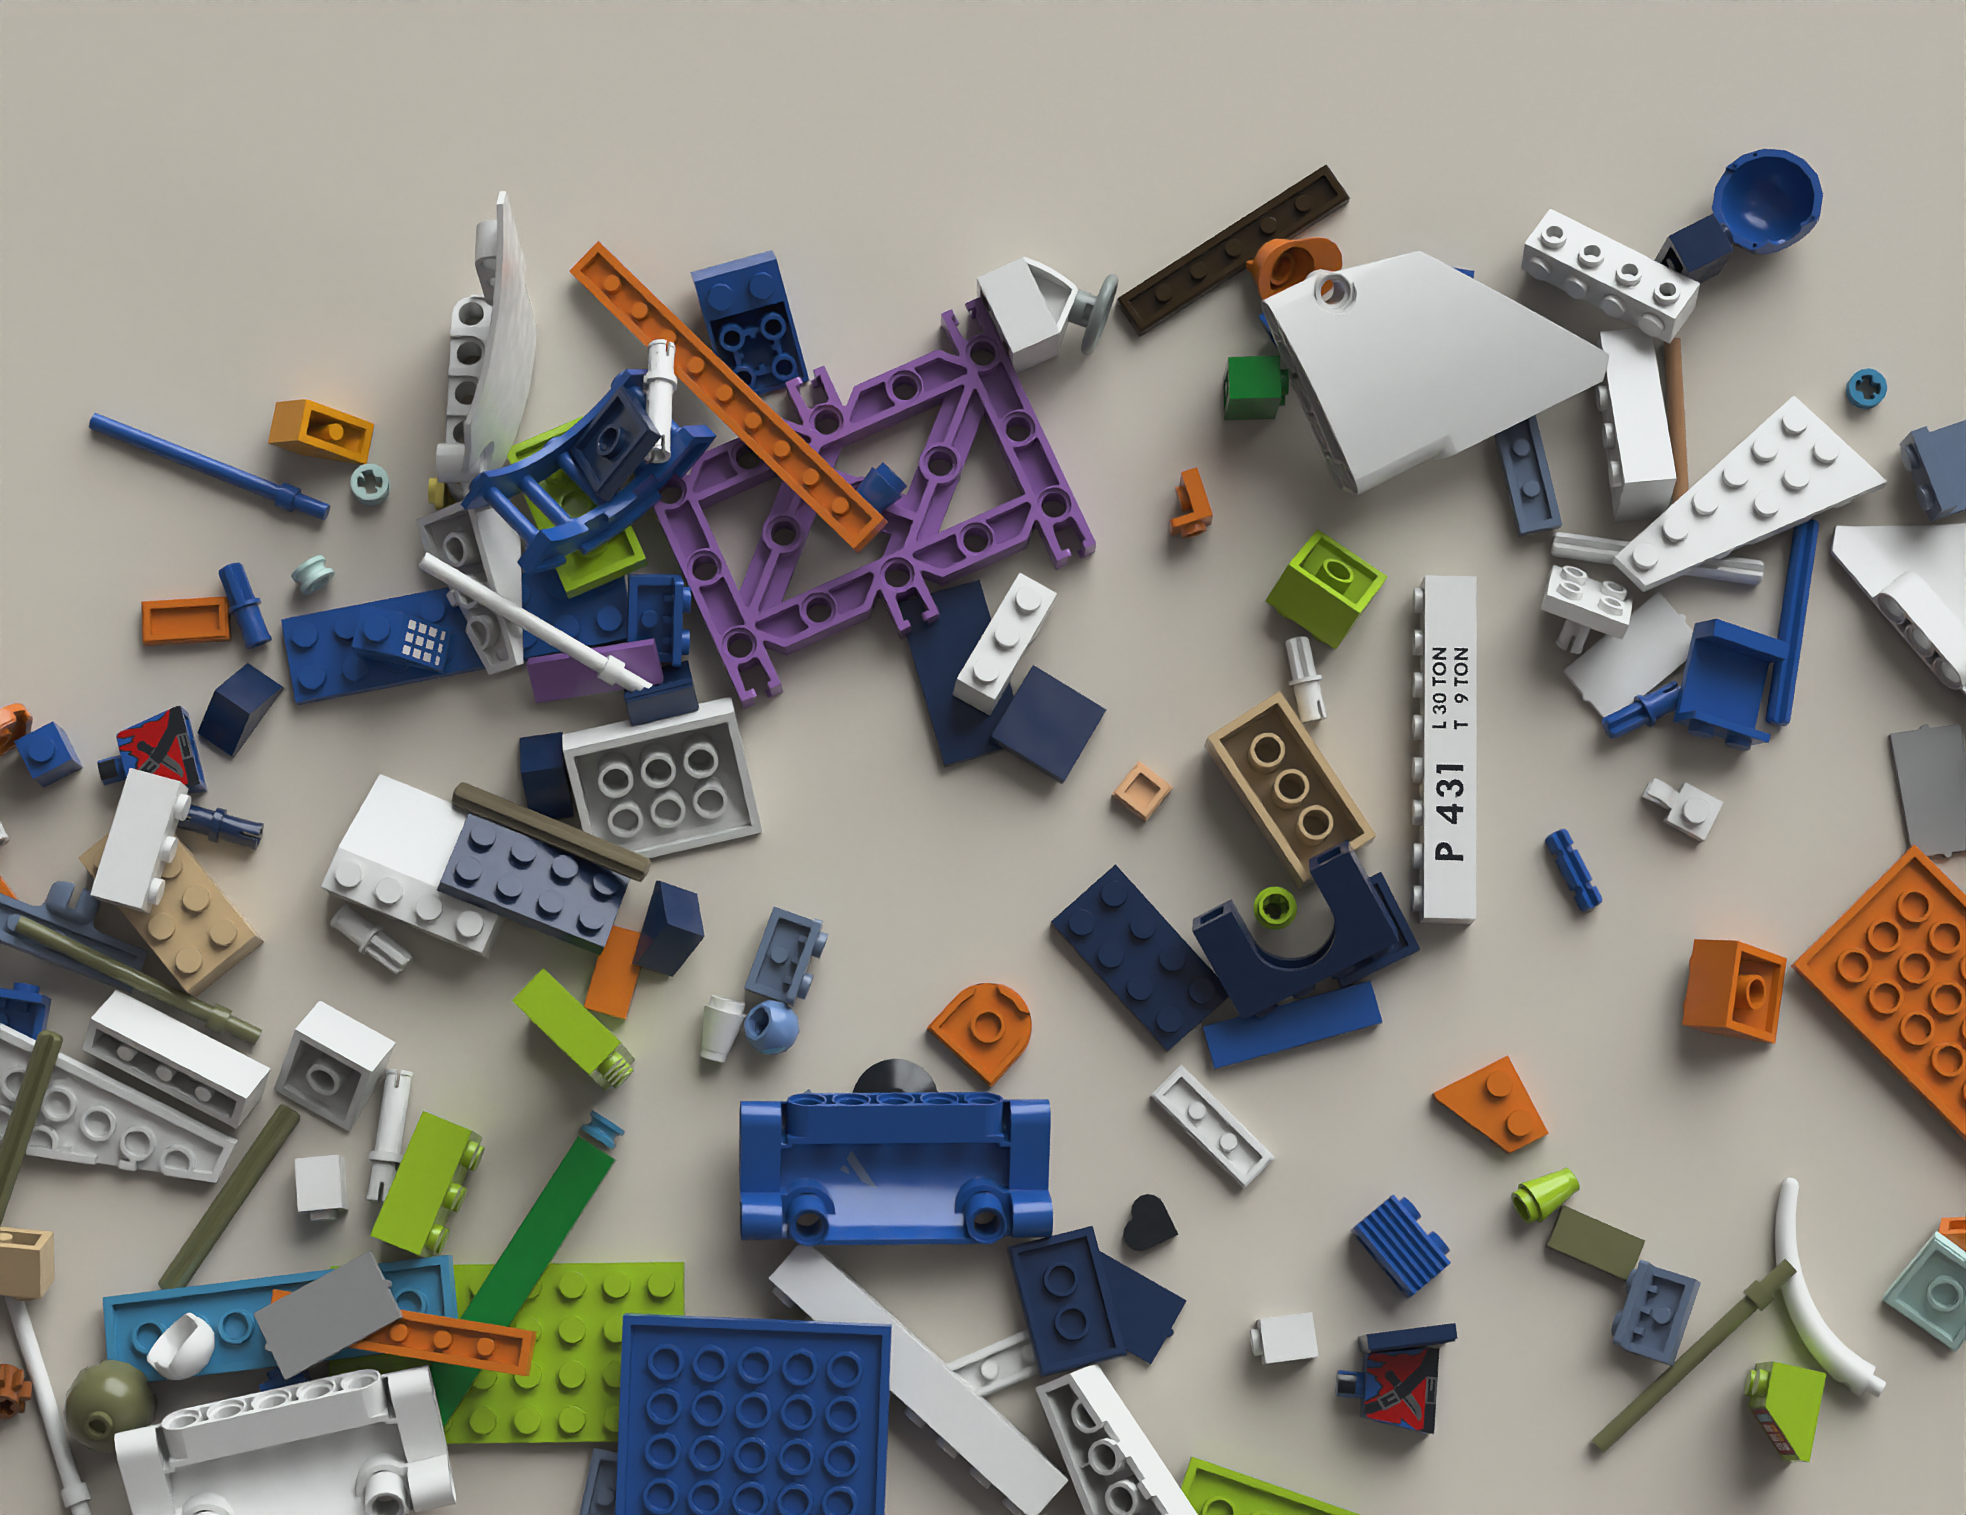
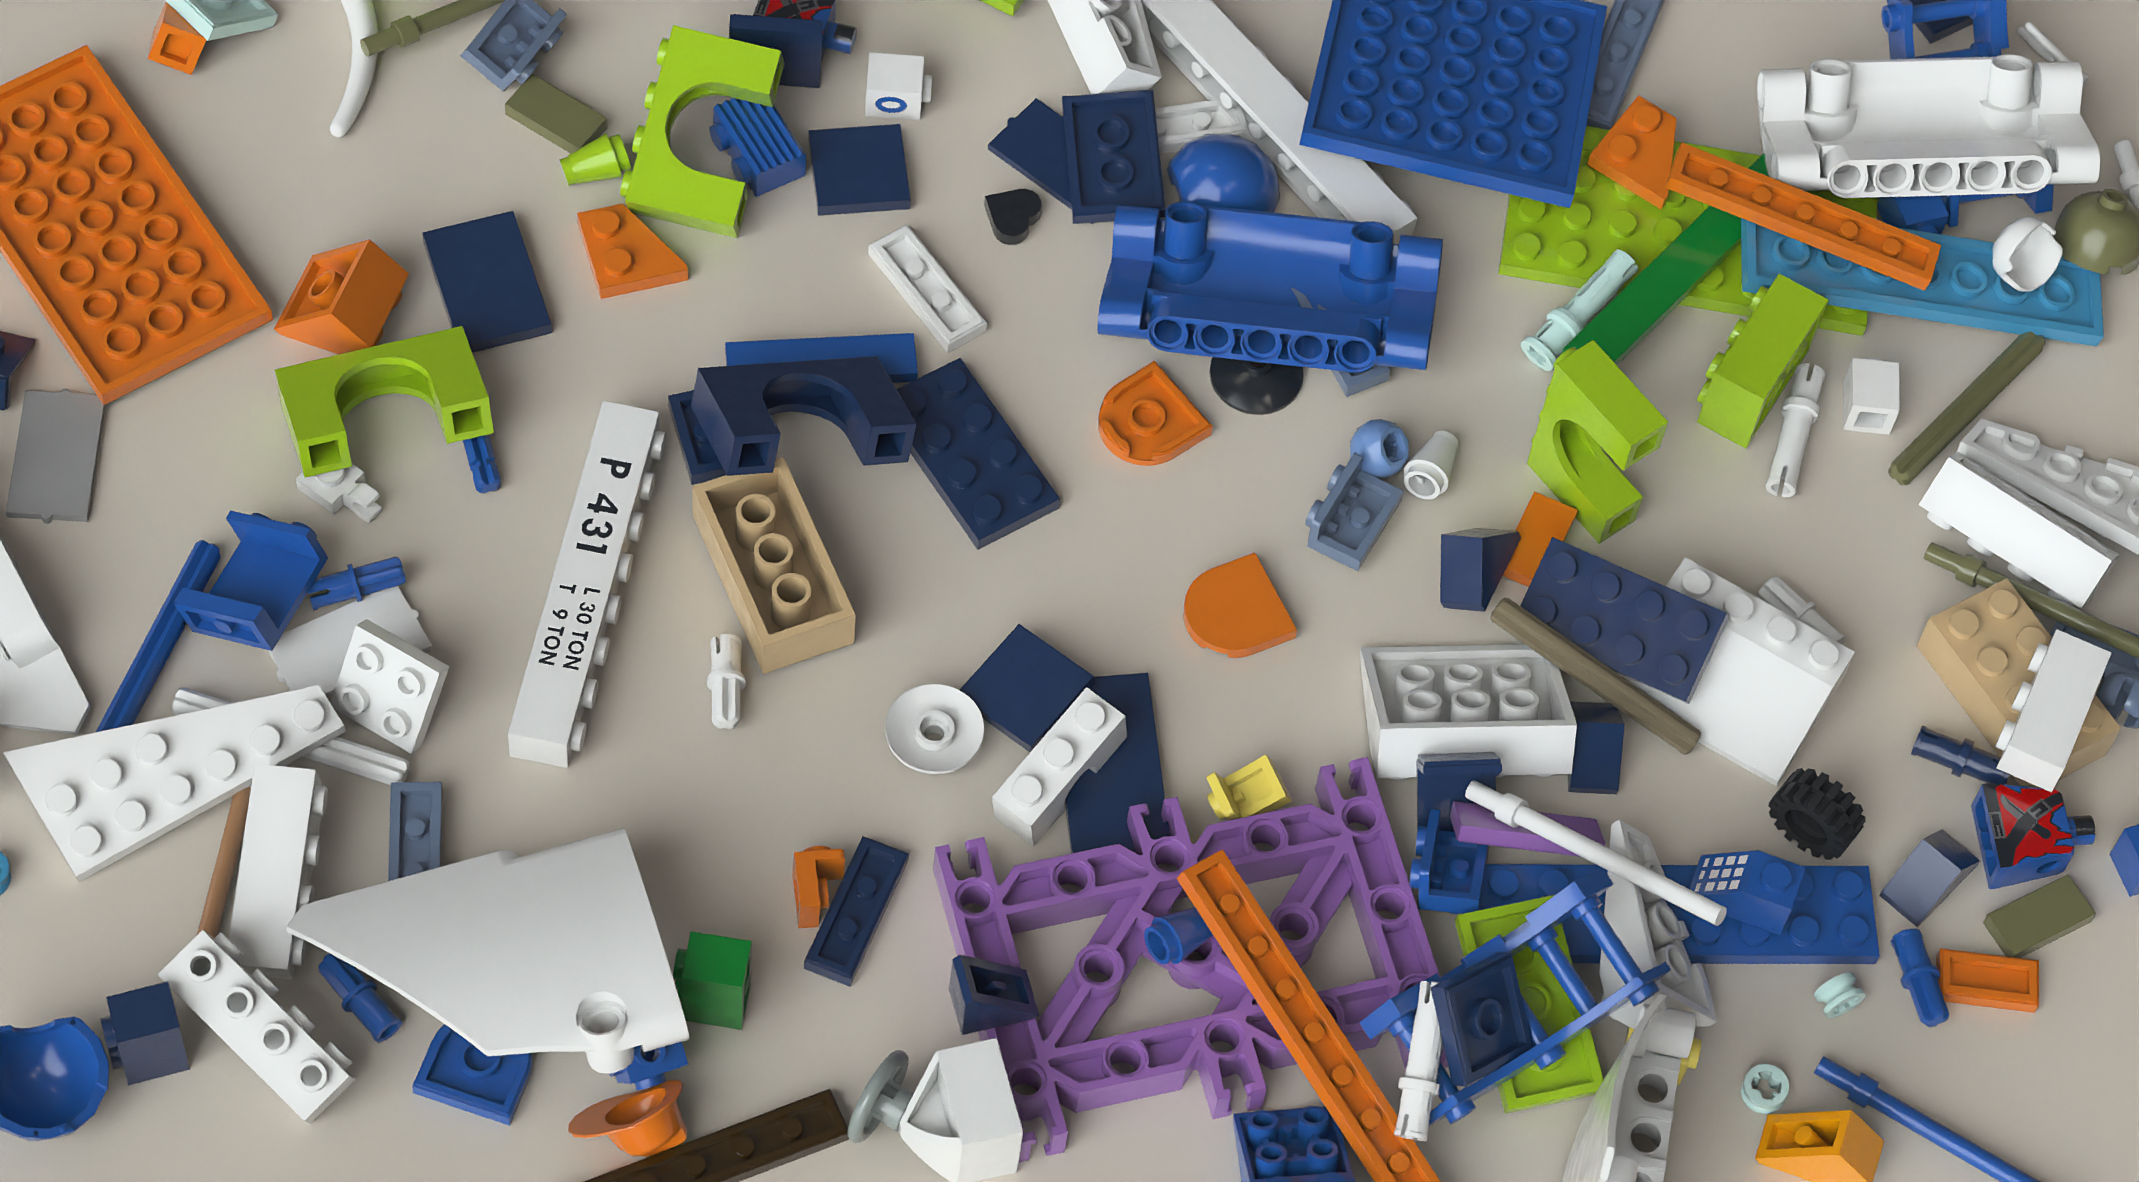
camera: 175 degrees left, 20 degrees down
(143, 688) = (2039, 918): none -> olive tile
(328, 1315) = (1876, 241): light grey piece -> none
(333, 1065) = (1847, 503): white slope -> none
(344, 728) = (1816, 813): none -> black tyre
(563, 1409) = (1639, 151): none -> orange wing
(614, 1200) = (1569, 320): none -> light aqua pin
(841, 661) = (1248, 791): none -> light yellow bracket
(877, 846) = (1236, 610): none -> orange tile
(956, 1298) = (1225, 173): none -> blue cylinder
(1024, 406) = (989, 994): none -> dark blue slope
(1123, 646) = (940, 711): none -> white dish
(1142, 791) = (932, 611): light nougat tile -> none
(1150, 497) = (856, 911): none -> dark blue tile
(1282, 900) = (818, 451): lime cone -> none
(1301, 1244) = (859, 169): none -> dark blue tile
(1326, 589) = (677, 767): lime slope -> none
(1479, 1175) = (694, 68): none -> lime arch
(1611, 1045) = (487, 281): none -> dark blue tile
(1726, 883) = (427, 366): none -> lime arch

